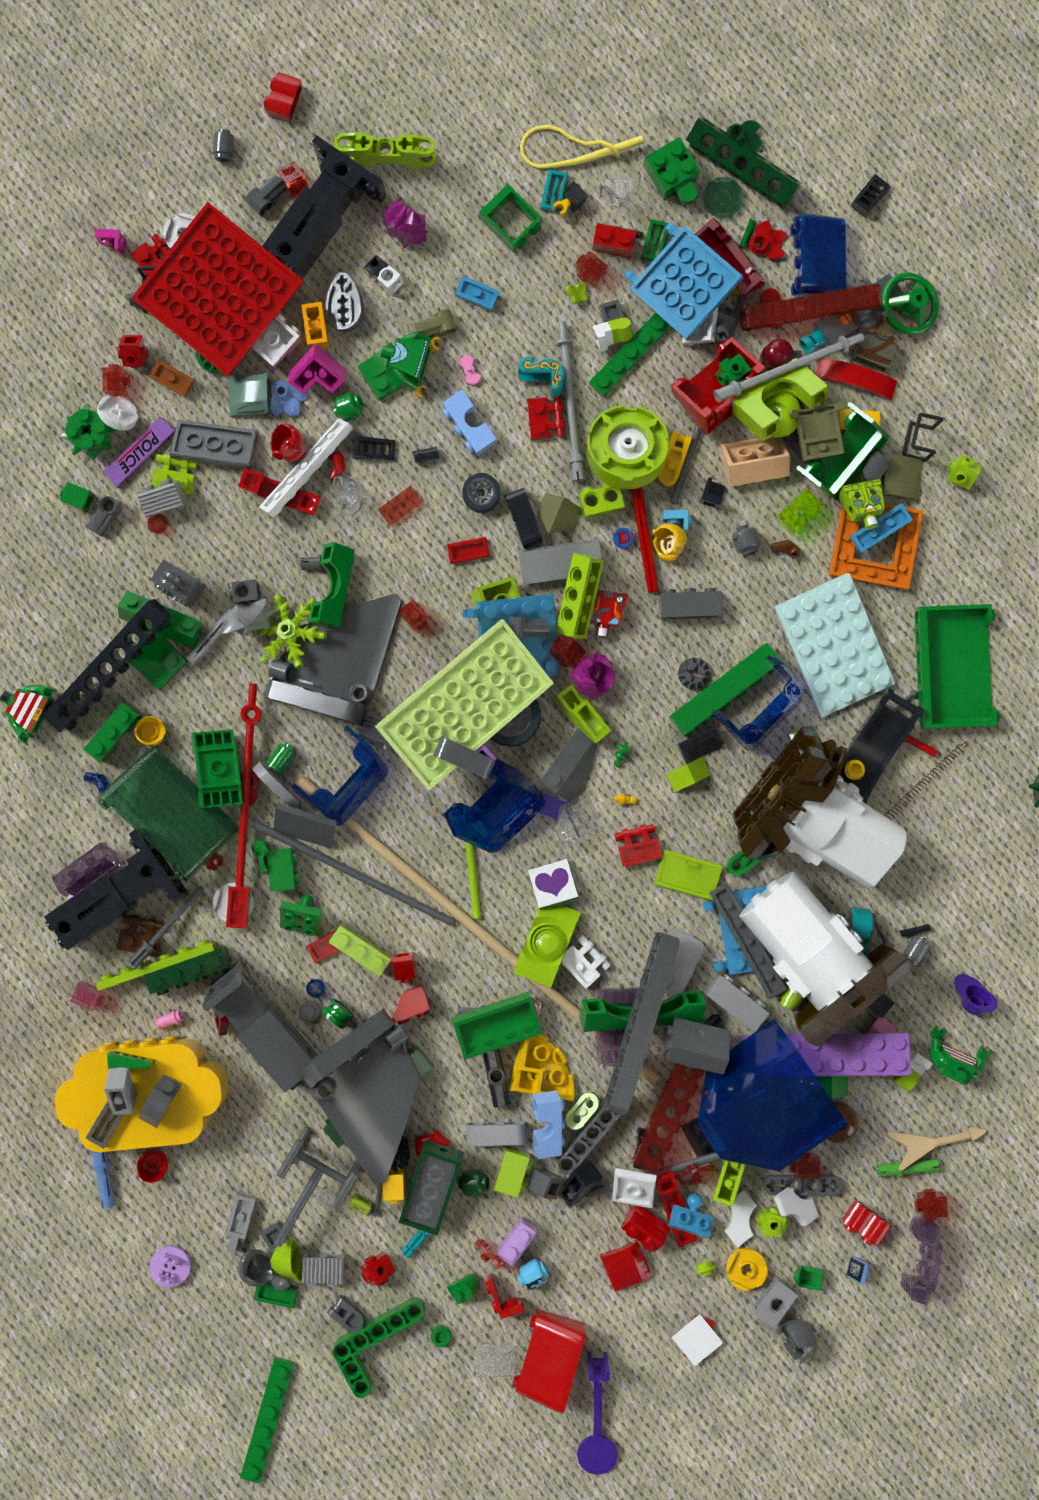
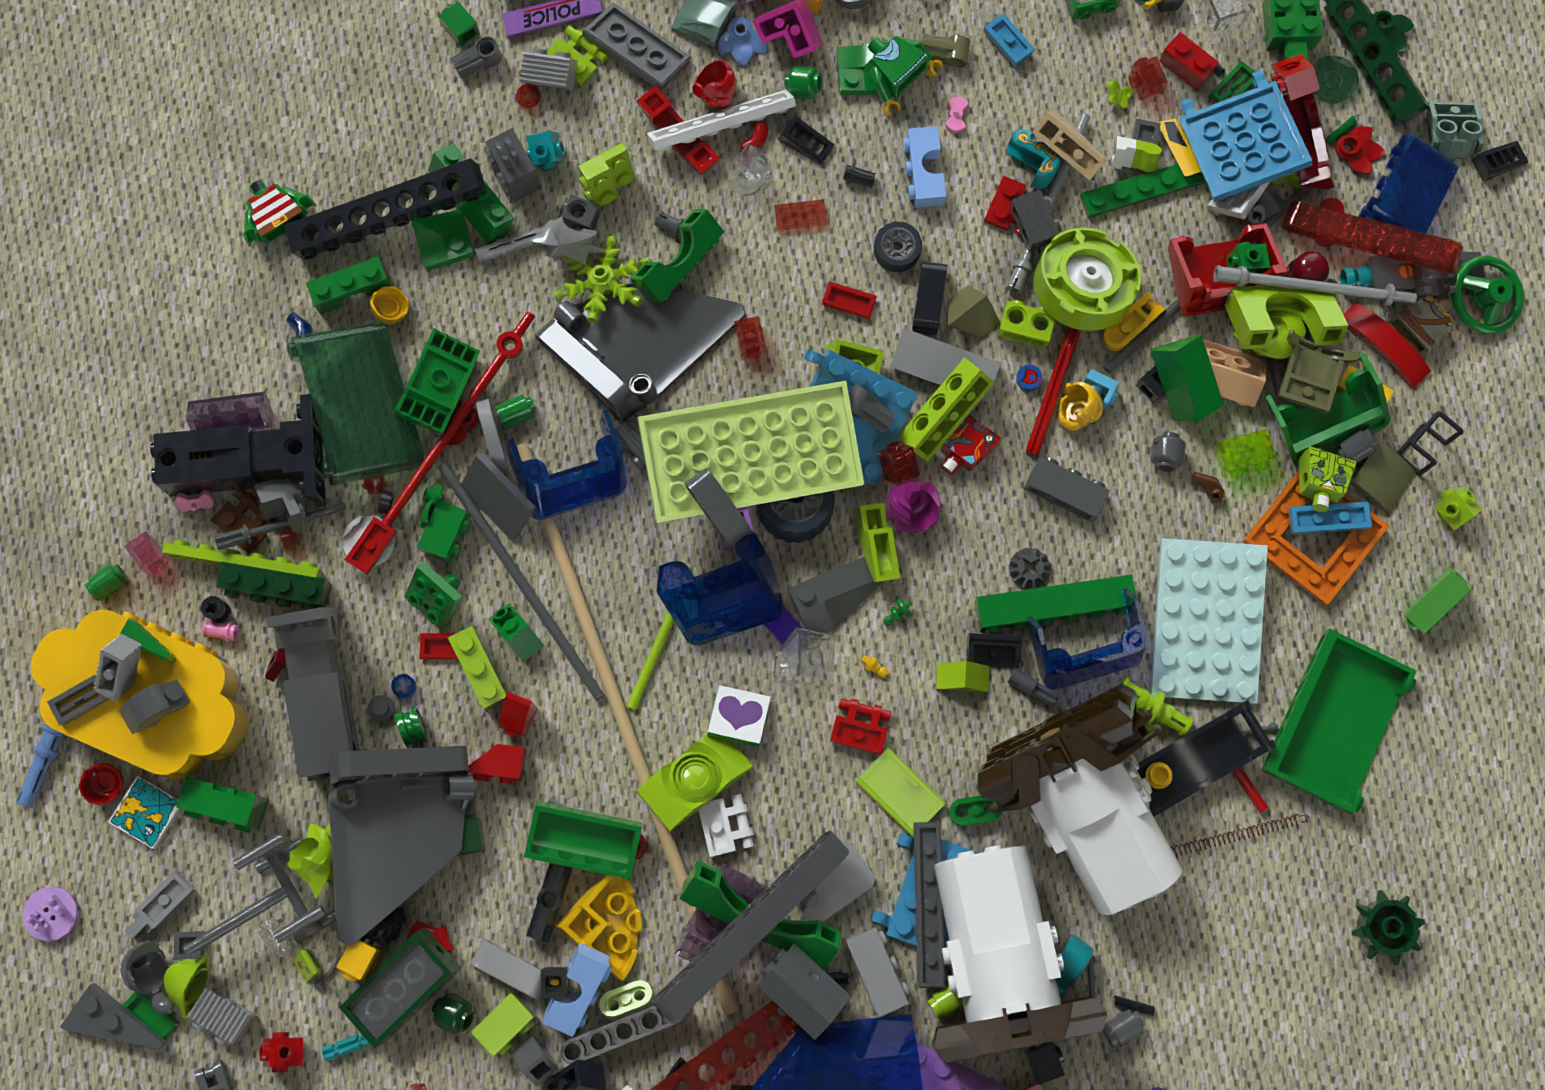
camera: 30 degrees right, 10 degrees down
(71, 1030) = (106, 581): none -> green brick
(103, 937) = (202, 500): none -> bright pink piece
(156, 909) = (280, 498): none -> dark grey brick
(163, 1007) = (208, 608): none -> black bush
(178, 932) = (289, 539): none -> clear red plate
(193, 1166) = (145, 812): none -> tile
(194, 558) = (545, 150): none -> teal brick
(229, 870) = (385, 502): none -> black tile
(241, 1134) = (222, 804): none -> green wedge
(246, 555) = (605, 174): none -> lime plate
(249, 1311) = (106, 1018): none -> dark grey wing
(325, 1139) = (313, 858): none -> lime hair
(370, 910) = (516, 632): none -> green slope
(530, 1128) = (554, 982): none -> pearl dark grey piece
(563, 352) = (1069, 144): none -> tan slope
(568, 422) = (1035, 219): none -> dark grey brick
(639, 308) = (1179, 146): none -> yellow sticker
(697, 215) = (1295, 77): none -> red brick
(735, 482) = (1188, 379): none -> green slope
(739, 755) = (1033, 687): none -> dark grey axle
(827, 188) = (1456, 128): none -> sand green slope
(829, 724) = (1161, 711): none -> lime piece
(981, 545) = (1437, 600): none -> bright green slope

